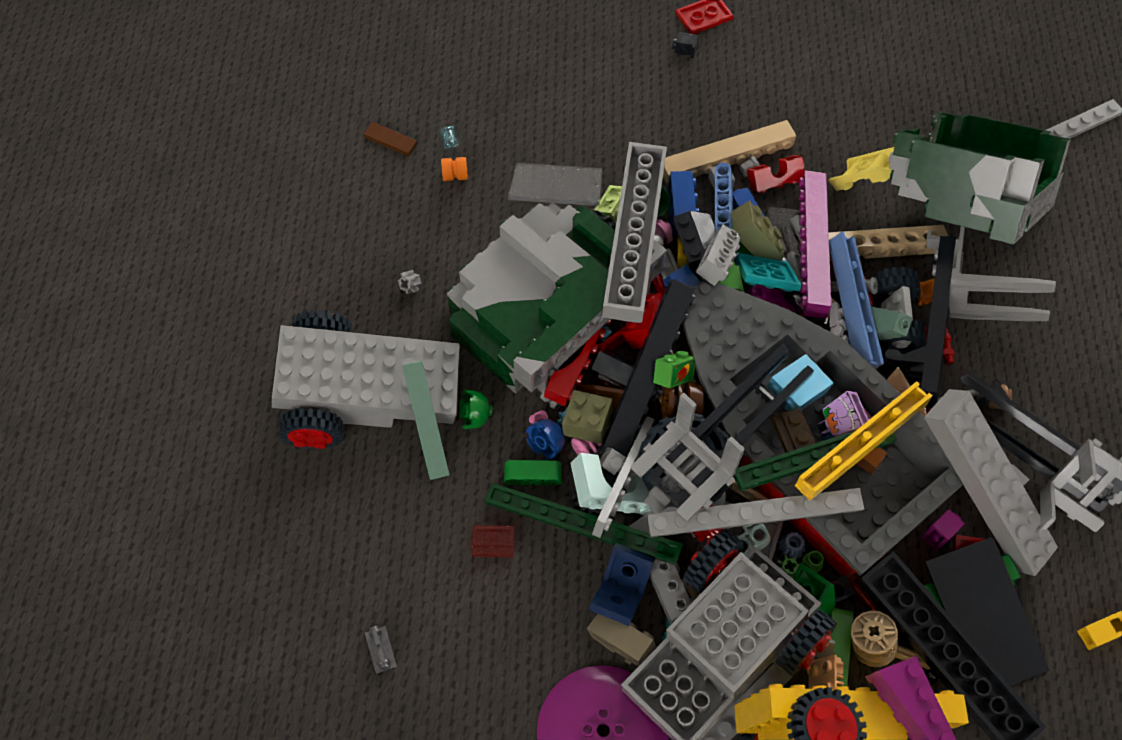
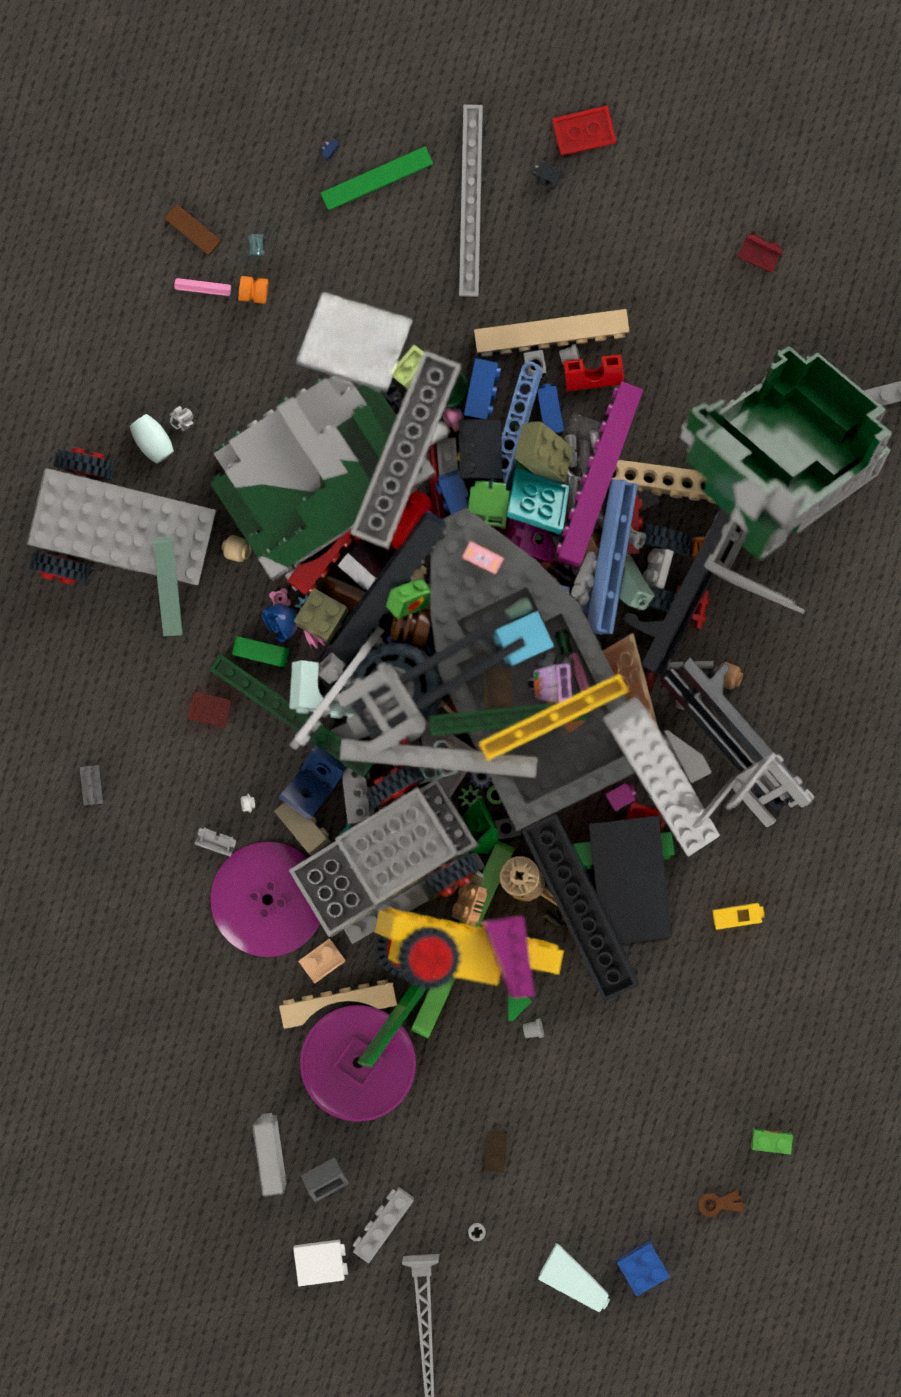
camera: 20 degrees right, 25 degrees up
(384, 303) = (151, 438): none -> light aqua piece
(408, 178) = (202, 287): none -> bright pink axle
(474, 409) = (218, 576): green cylinder -> none
(487, 381) = (236, 548): none -> tan head
(497, 60) = (329, 149): none -> dark blue plate
(539, 680) = (221, 844): none -> light grey hinge
(541, 75) = (377, 178): none -> green tile
(555, 629) = (247, 803): none -> white plate
(627, 77) = (470, 200): none -> light grey plate
(719, 255) = (487, 484): light grey brick -> none
(737, 314) = (482, 557): none -> bright pink tile
(792, 357) = (520, 608): none -> sand green cone
(836, 388) = (563, 640): none -> dark green pin
(867, 166) = (681, 397): light yellow piece -> none
(881, 66) = (760, 252): none -> dark red bracket

